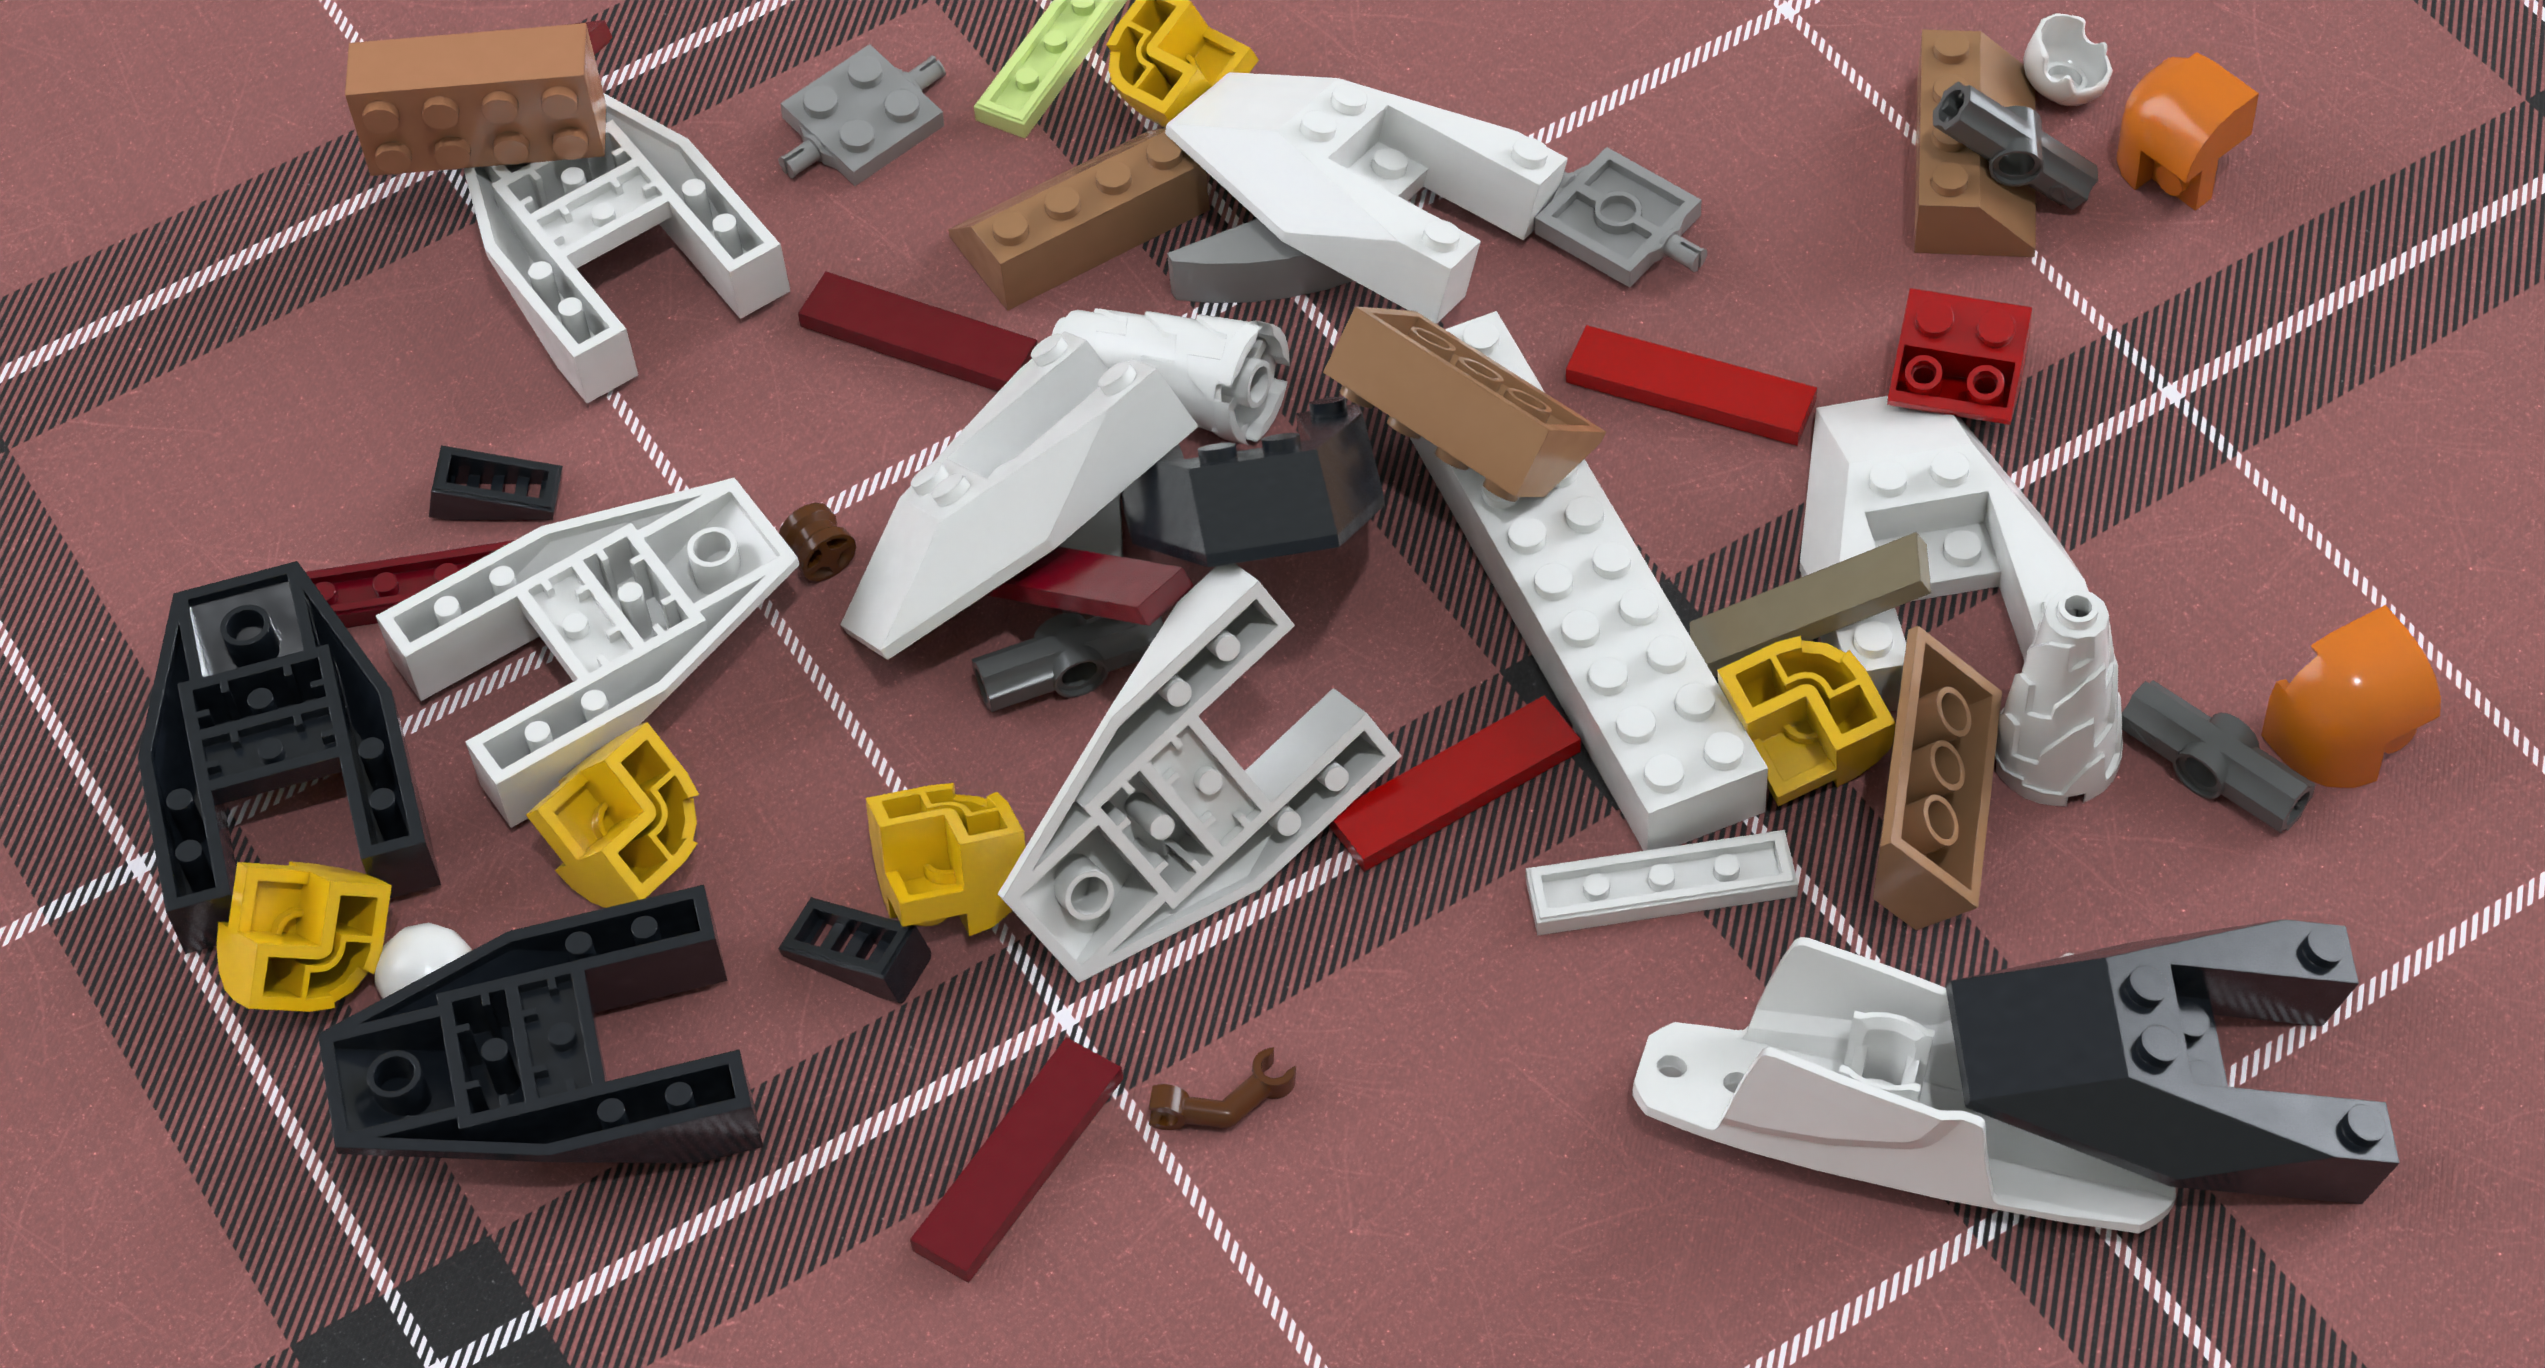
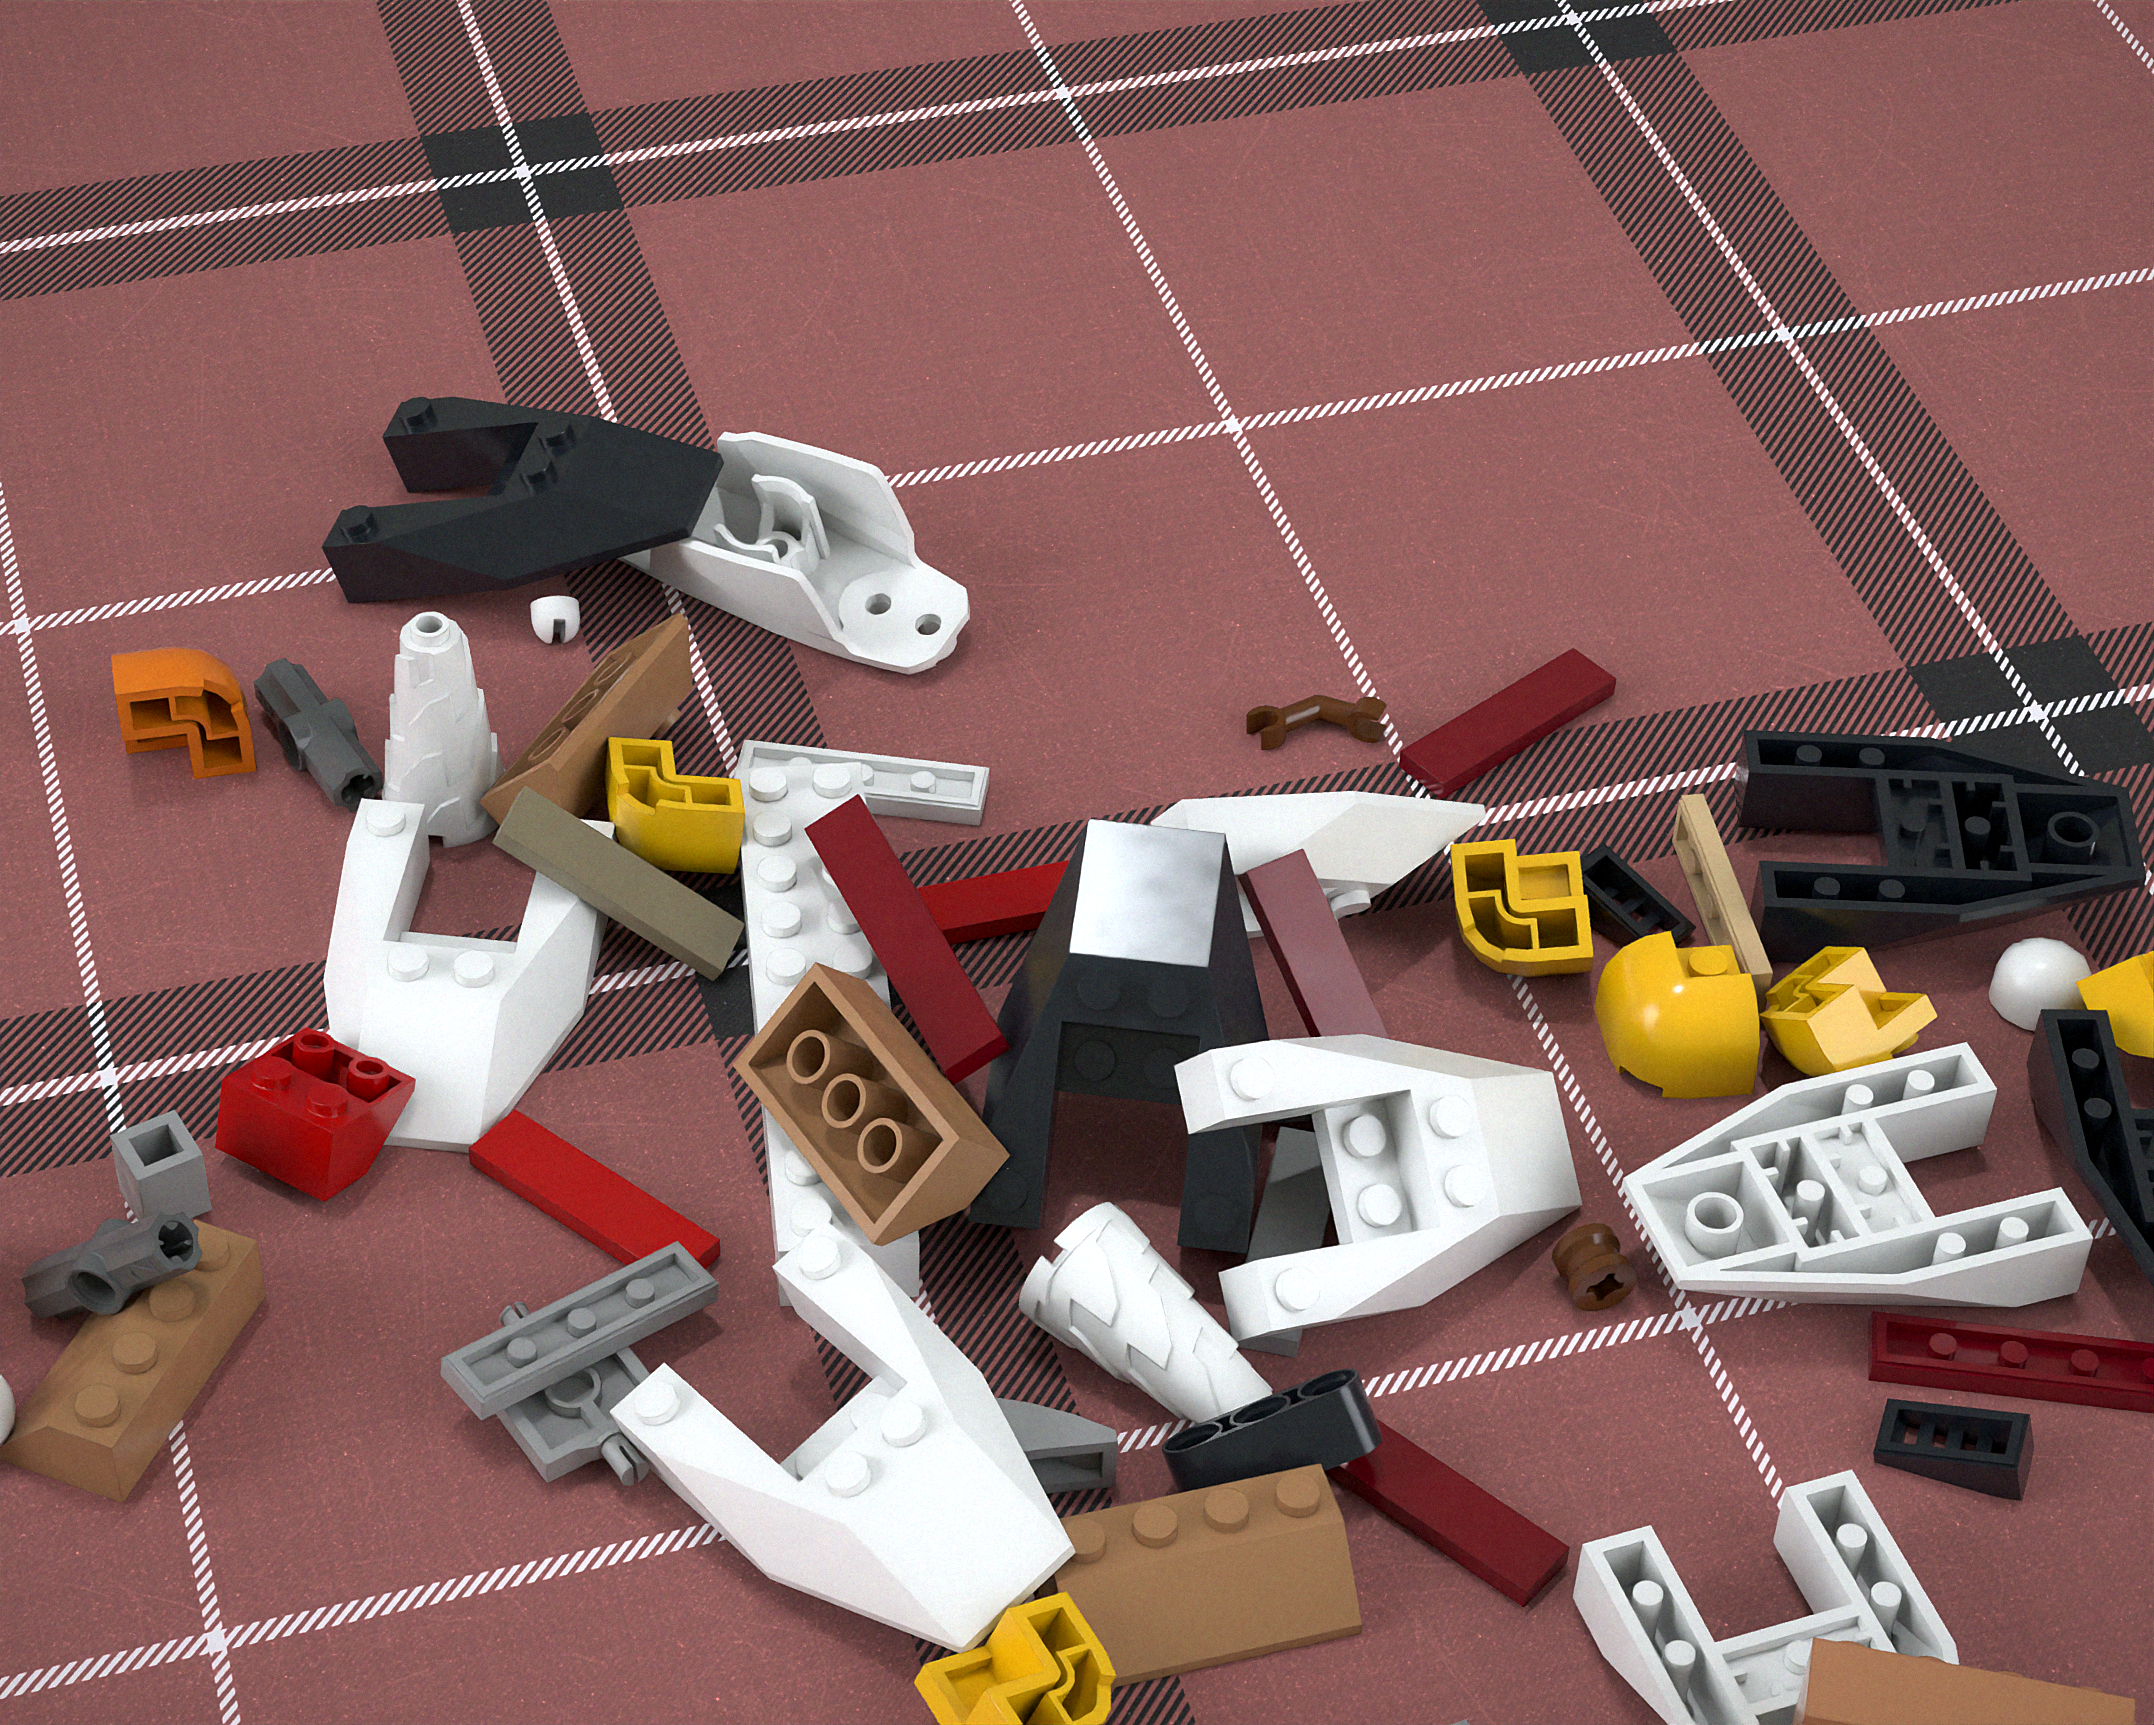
camera: 170 degrees left, 10 degrees down
(756, 958) = (1718, 892): none -> tan tile
(779, 794) = (1680, 1018): none -> yellow brick
(1022, 297) = (1298, 1427): none -> black beam
(1504, 559) = (907, 940): none -> dark red tile
(1629, 236) = (578, 1330): none -> light grey tile
(2044, 265) = (161, 1168): none -> light grey brick

